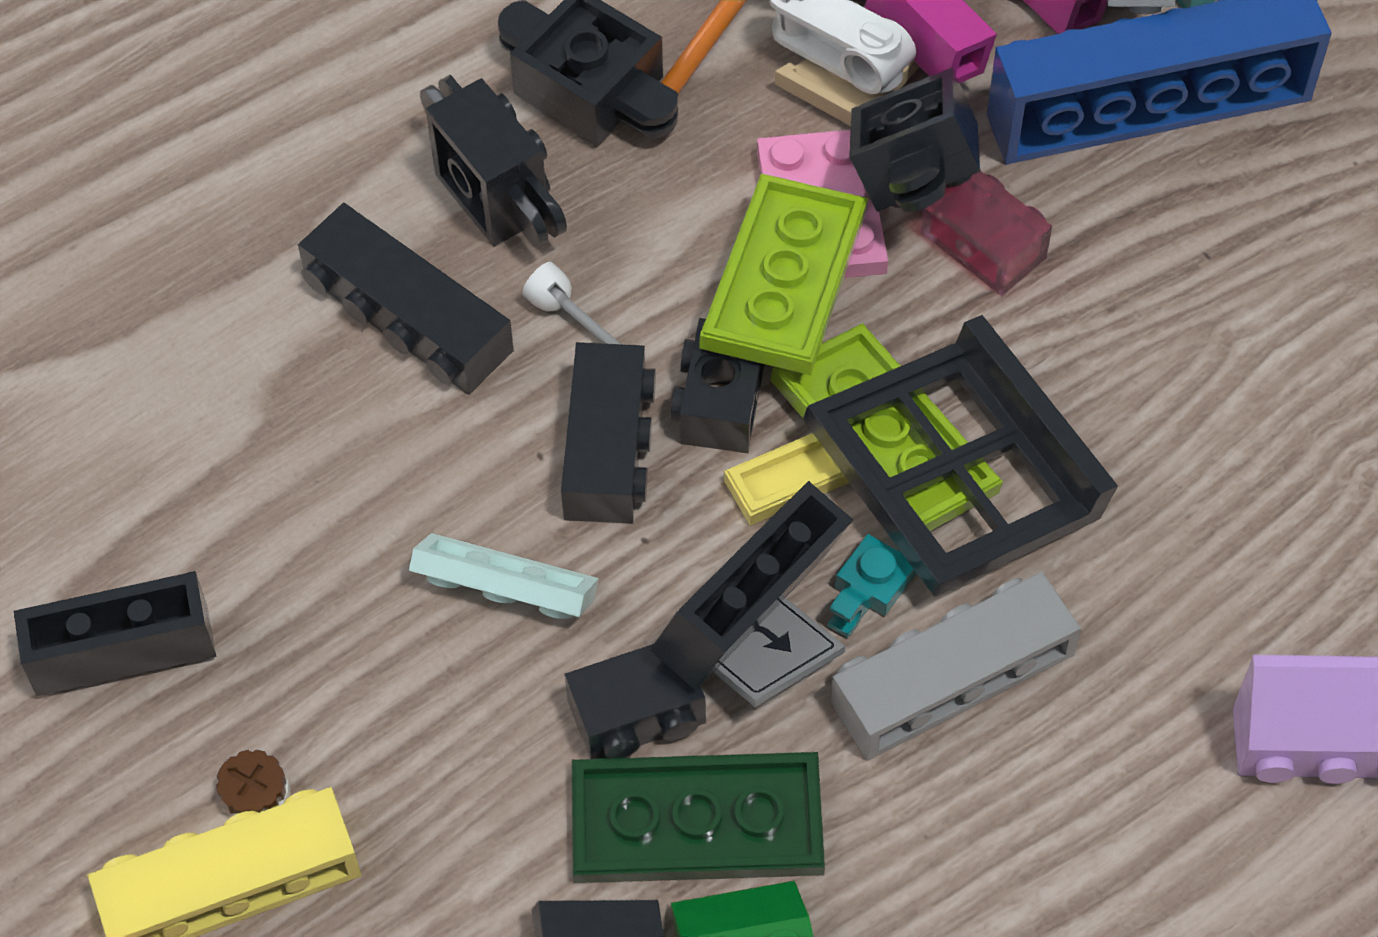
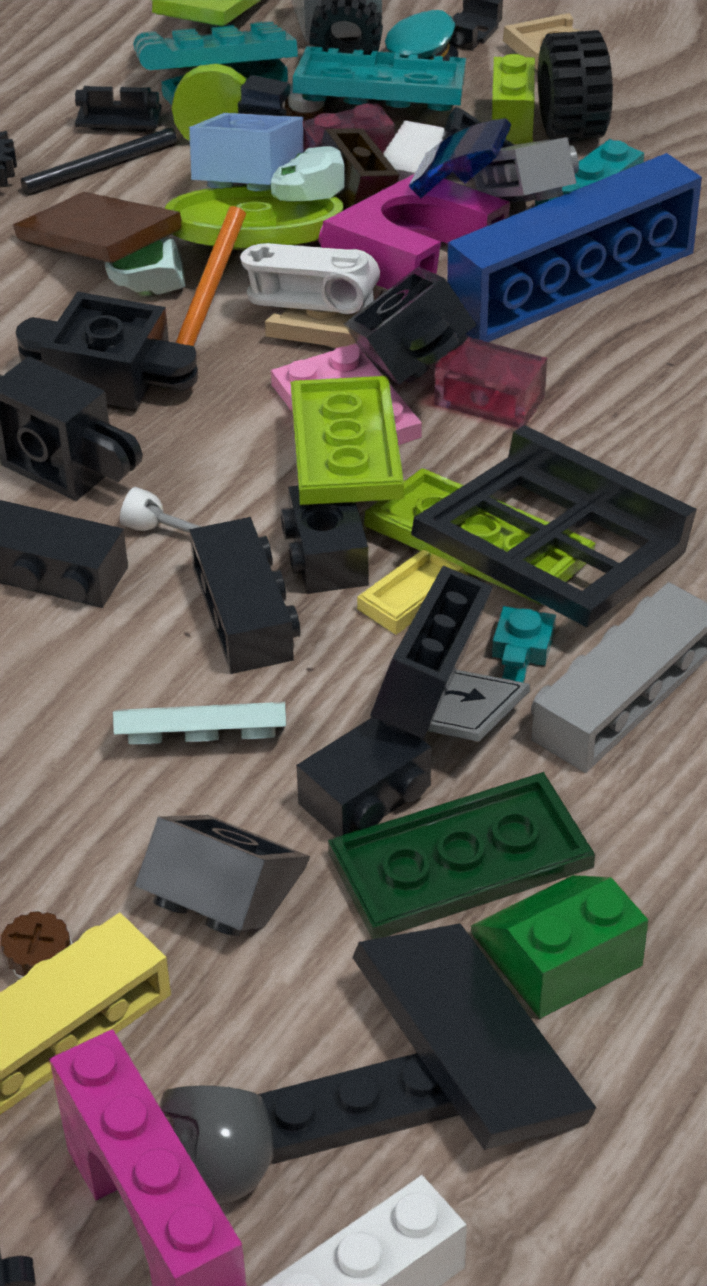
camera: 20 degrees left, 15 degrees down
(453, 761) = (218, 872): none -> black slope

